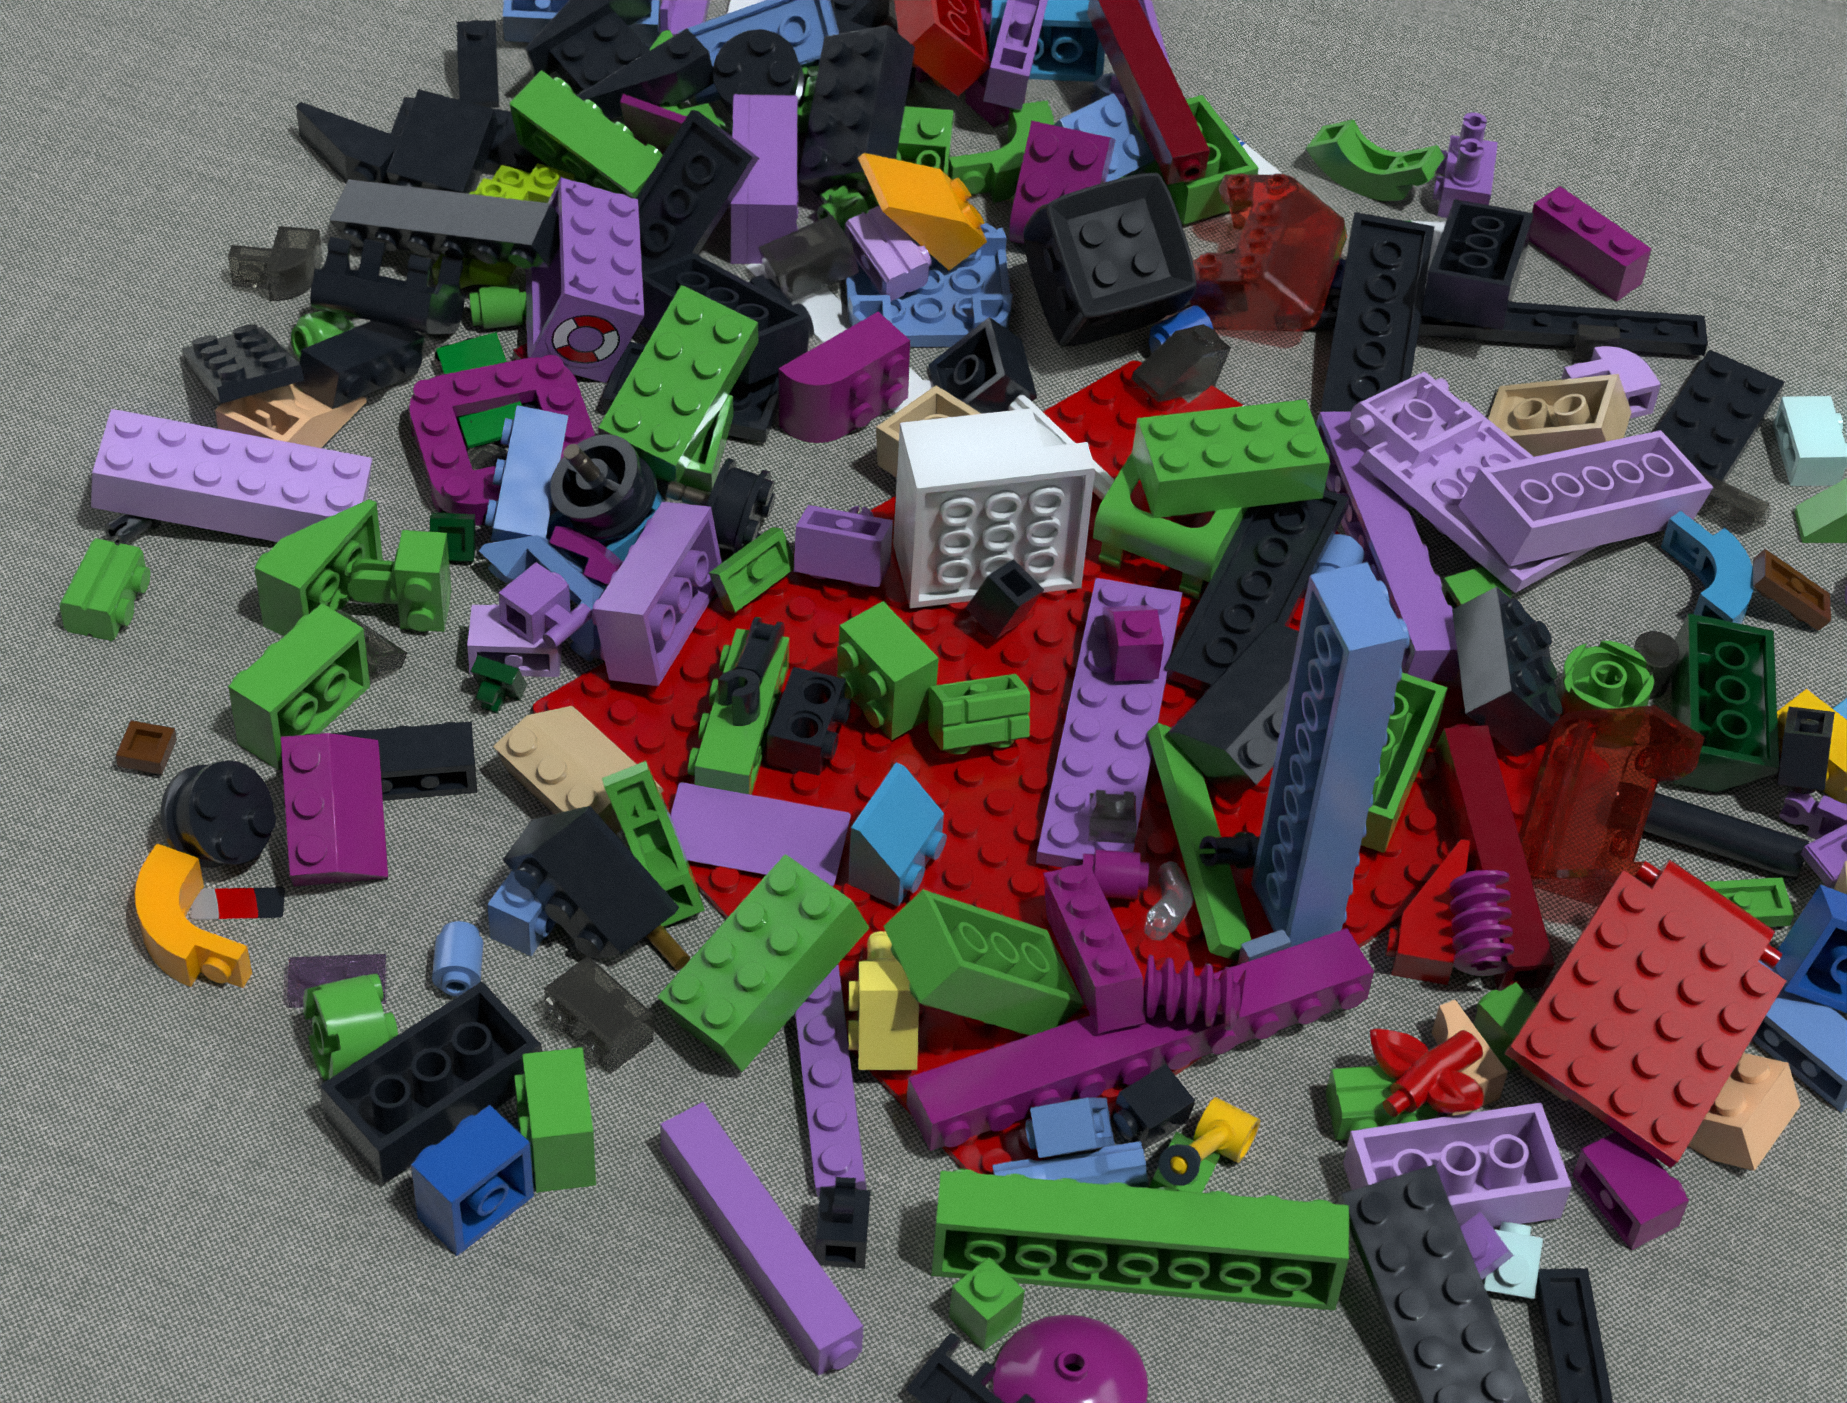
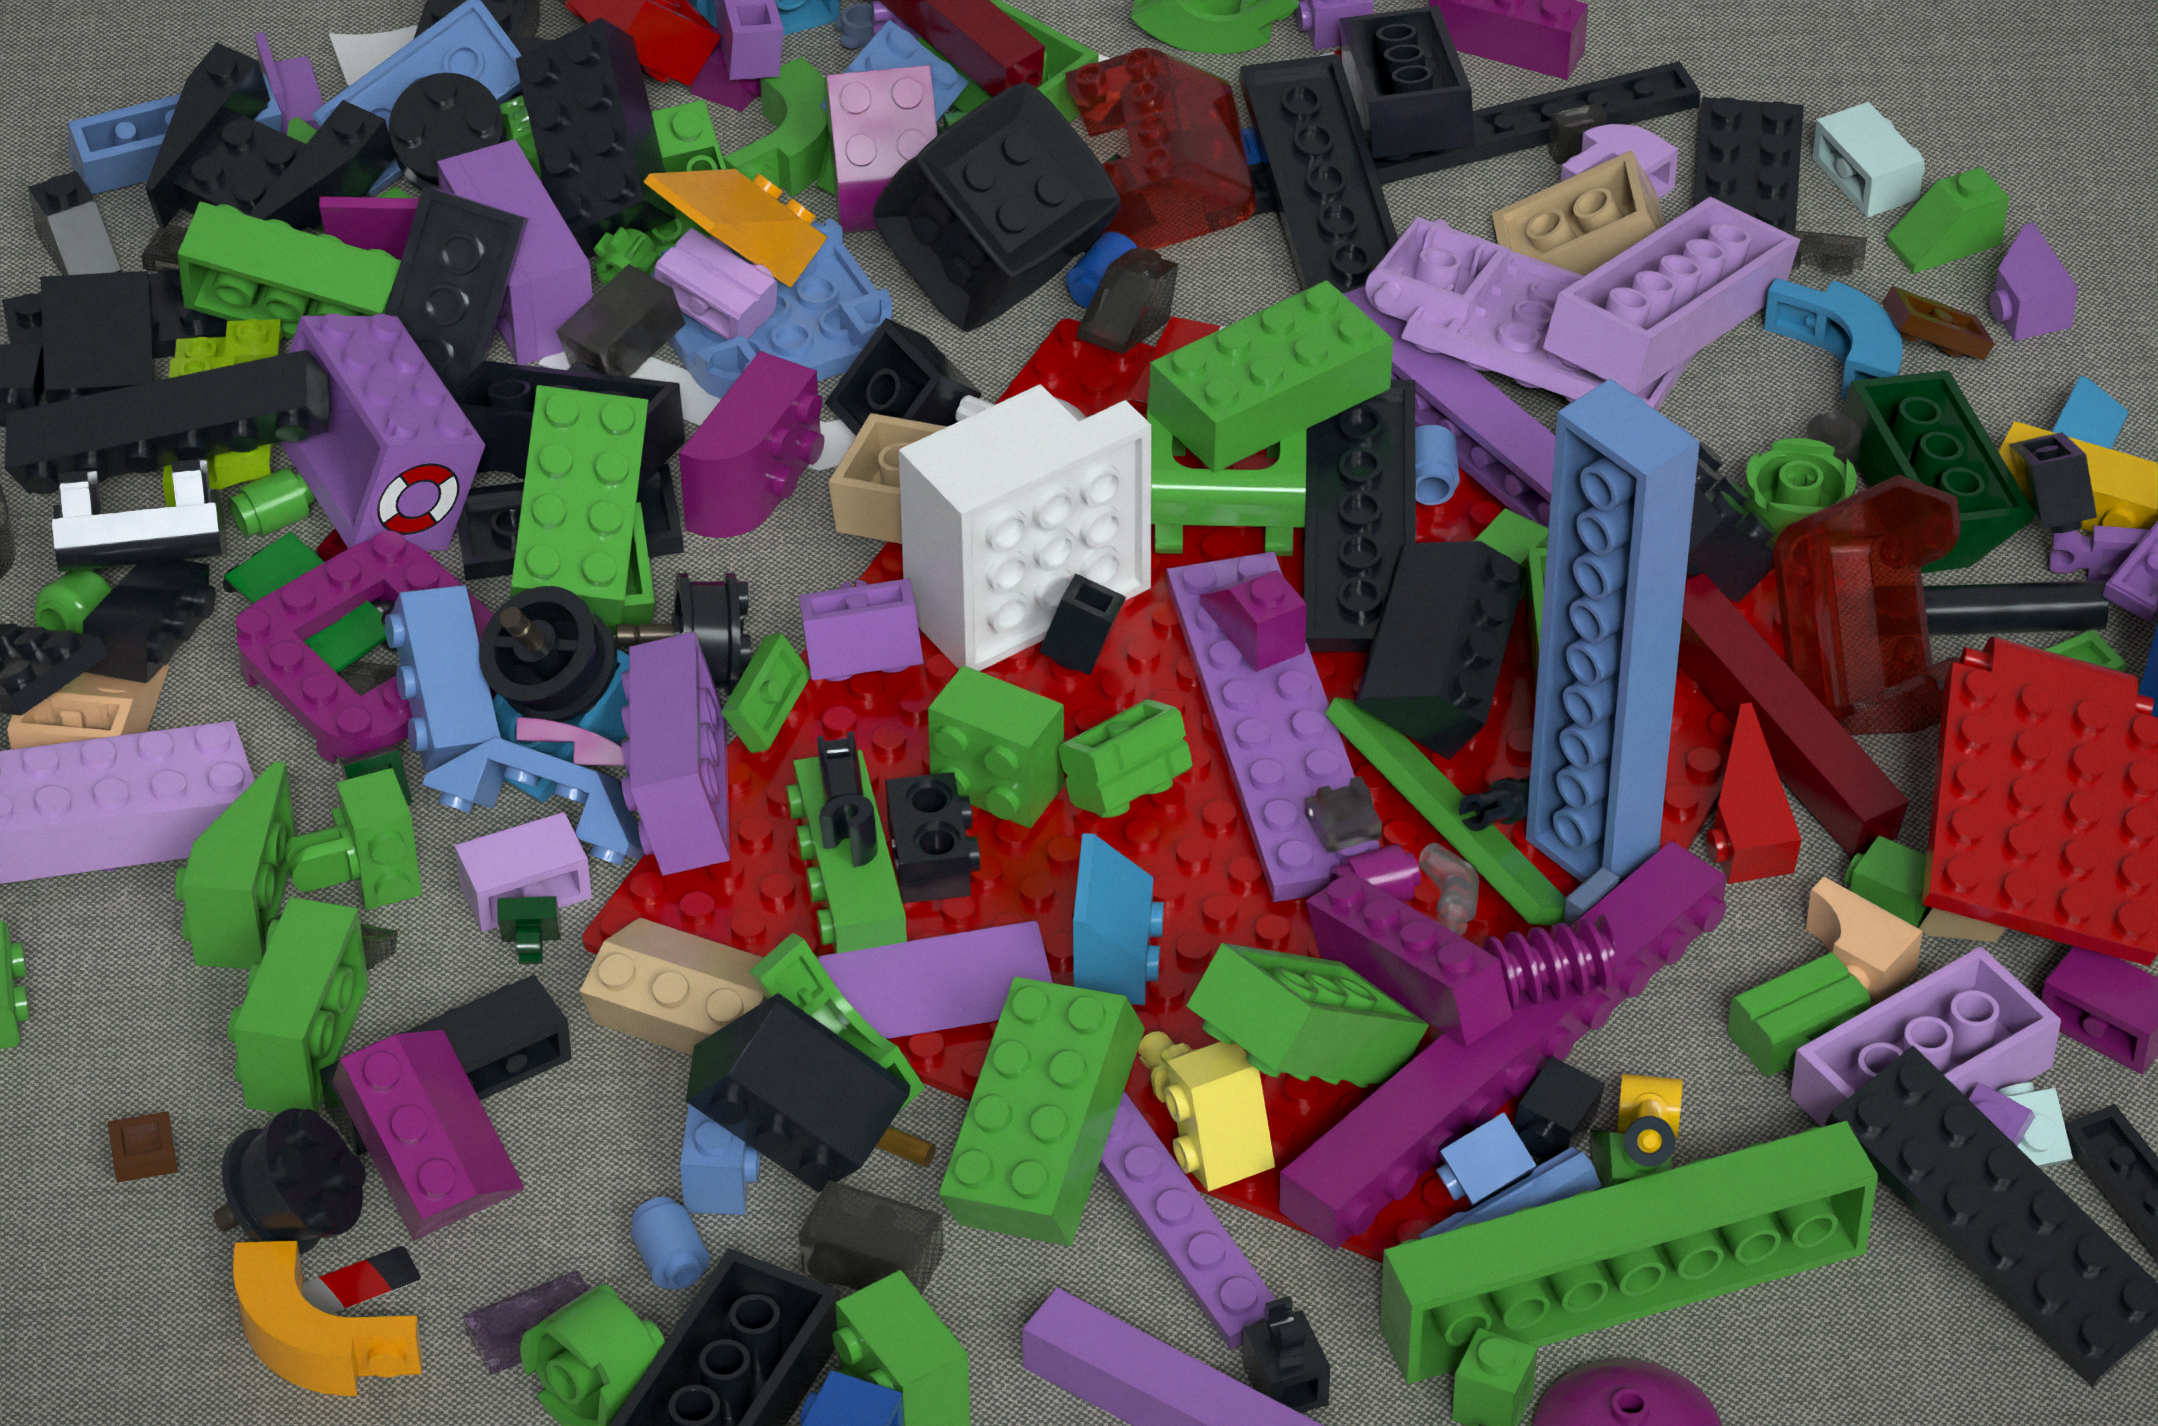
camera: 20 degrees left, 5 degrees down
(539, 607) = (545, 811): medium lavender brick -> none
(1428, 1073) = (1845, 960): red plant -> none
(1478, 924) = (1810, 782): magenta piece -> none

